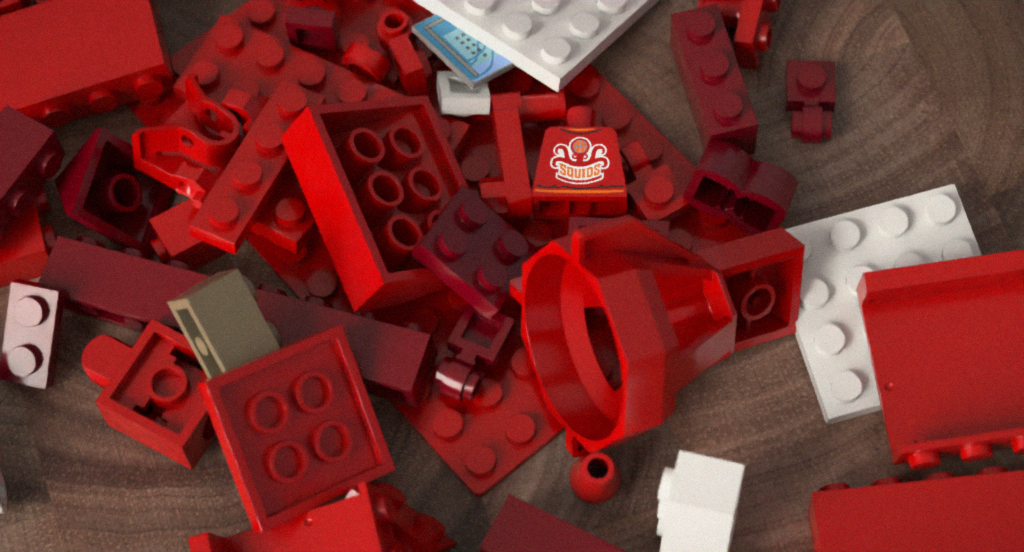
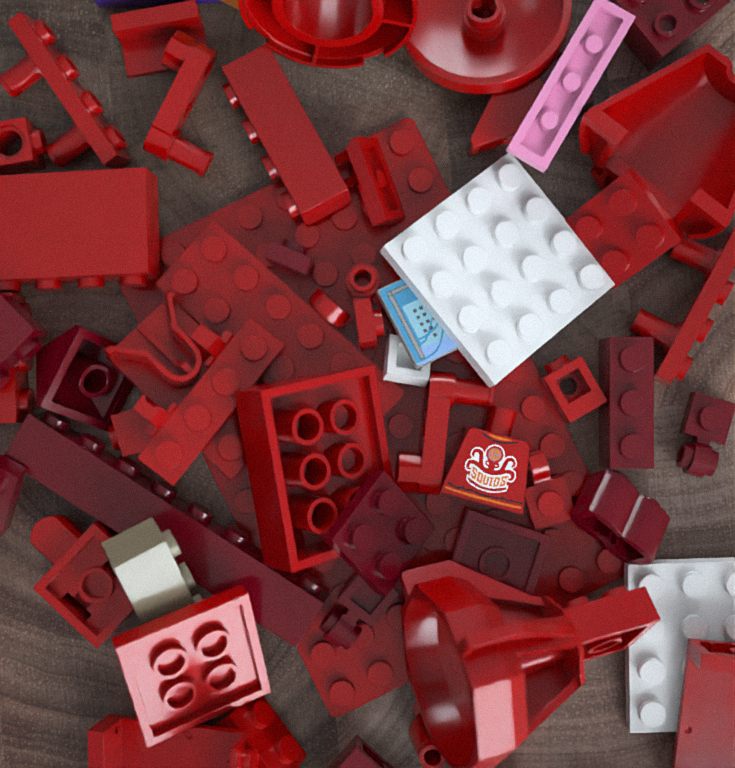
camera: 10 degrees right, 25 degrees up
(665, 81) = (586, 391): none -> red brick

